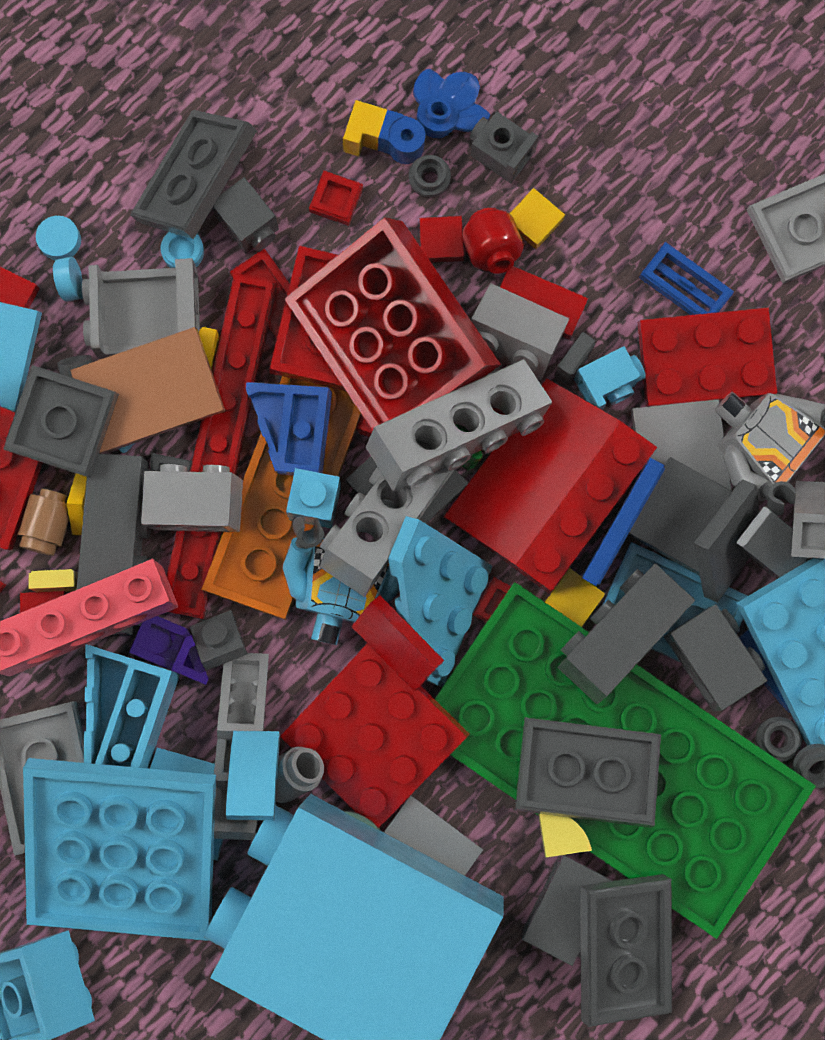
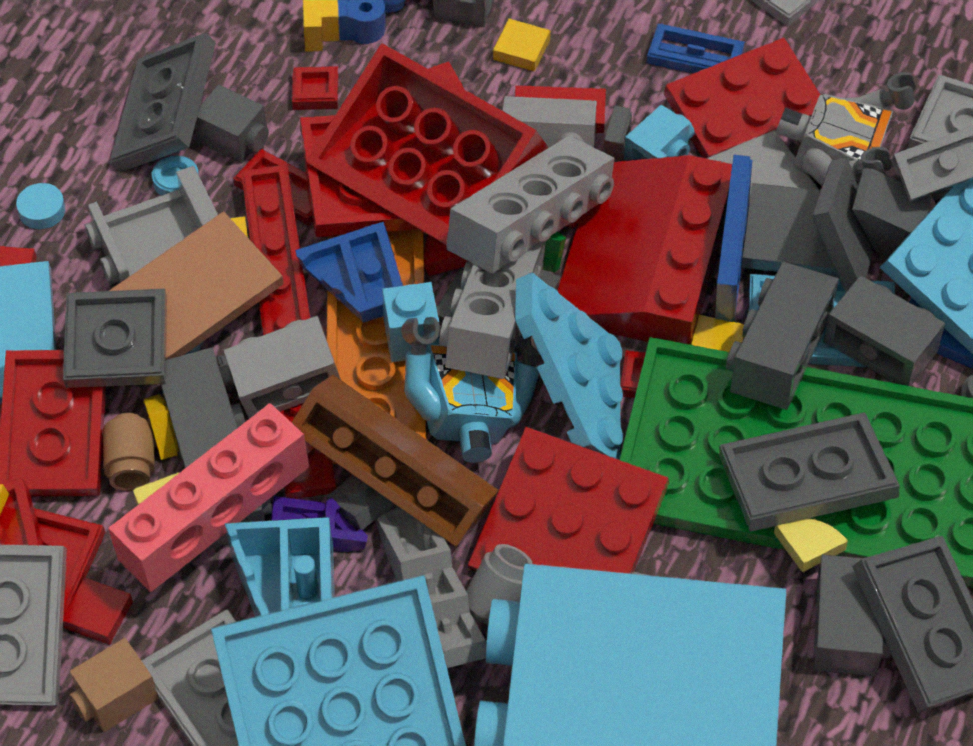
camera: 20 degrees left, 25 degrees down
(68, 278) = (67, 232): medium azure tile -> none
(247, 632) = (394, 459): none -> dark orange brick
(252, 775) = (461, 577): medium azure slope -> none
(397, 643) = (557, 410): red tile -> none
(426, 164) = (405, 31): dark grey plate -> none
(492, 239) = (489, 68): red head -> none

